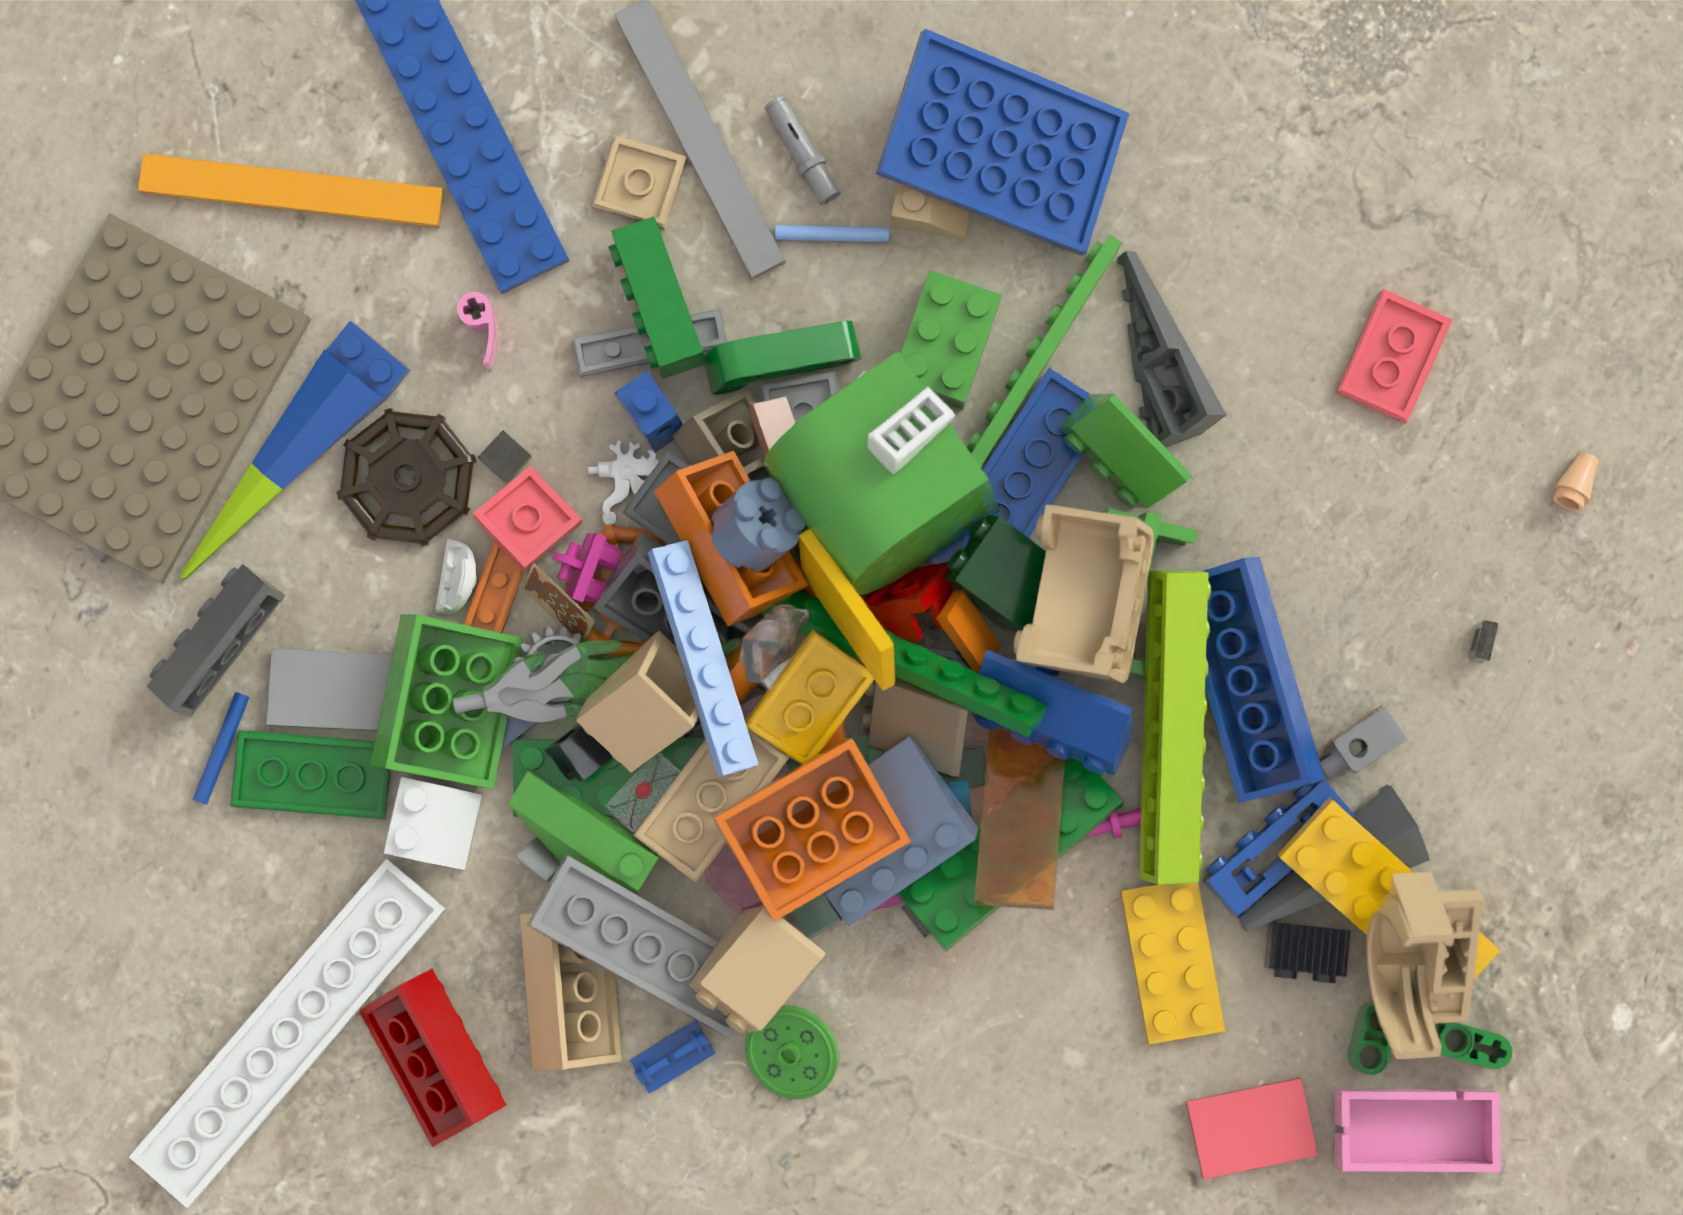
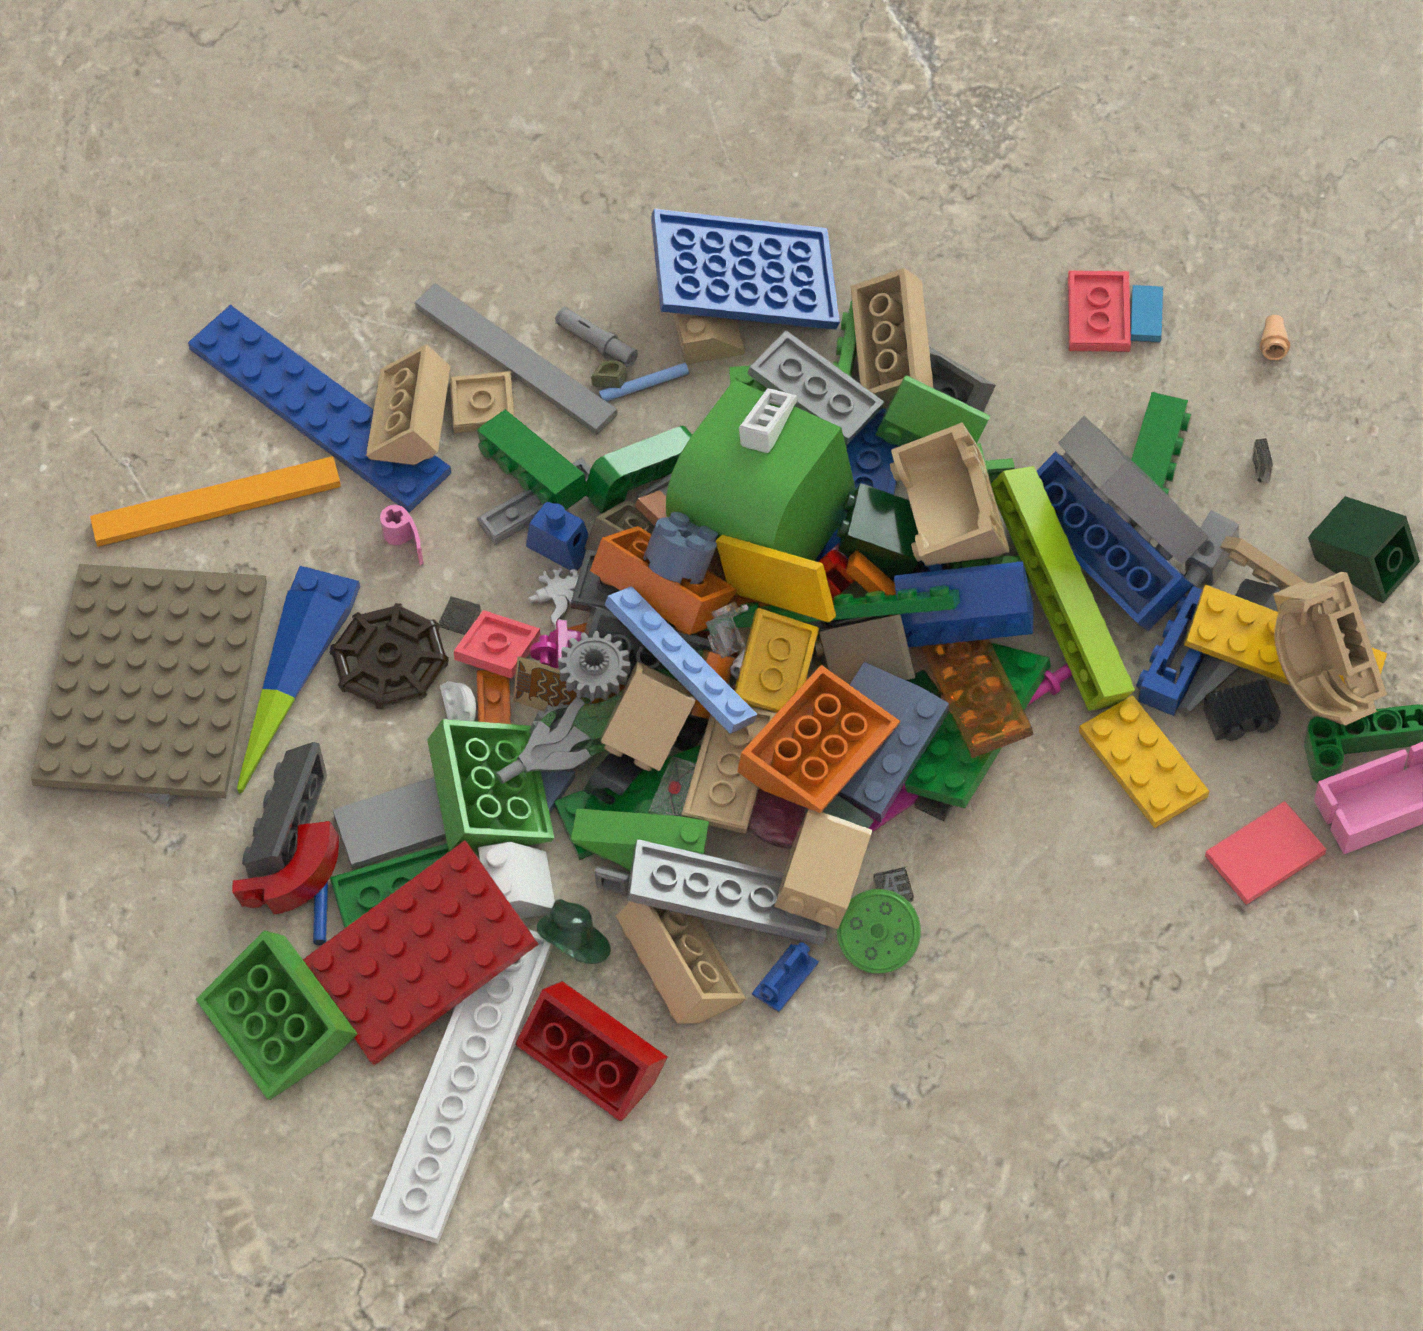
camera: 20 degrees left, 25 degrees down
(120, 873) = (275, 1014): none -> bright green slope
(215, 720) = (301, 878): none -> red arch
(294, 872) = (420, 952): none -> red plate
(468, 914) = (572, 931): none -> clear green piece
(547, 168) = (409, 408): none -> tan slope
(608, 646) = (591, 682): none -> light grey gear
(797, 209) = (609, 374): none -> olive tile
(833, 998) = (895, 880): none -> clear smoke tile
(1012, 347) = (817, 383): none -> light grey plate
(1131, 312) = (891, 332): none -> tan brick
(1302, 645) = (1130, 491): none -> light grey brick
(1365, 581) = (1160, 437): none -> green brick
(1414, 797) = (1263, 566): none -> tan plate
(1446, 383) = (1146, 313): none -> dark azure tile
(1542, 803) = (1367, 544): none -> dark green slope

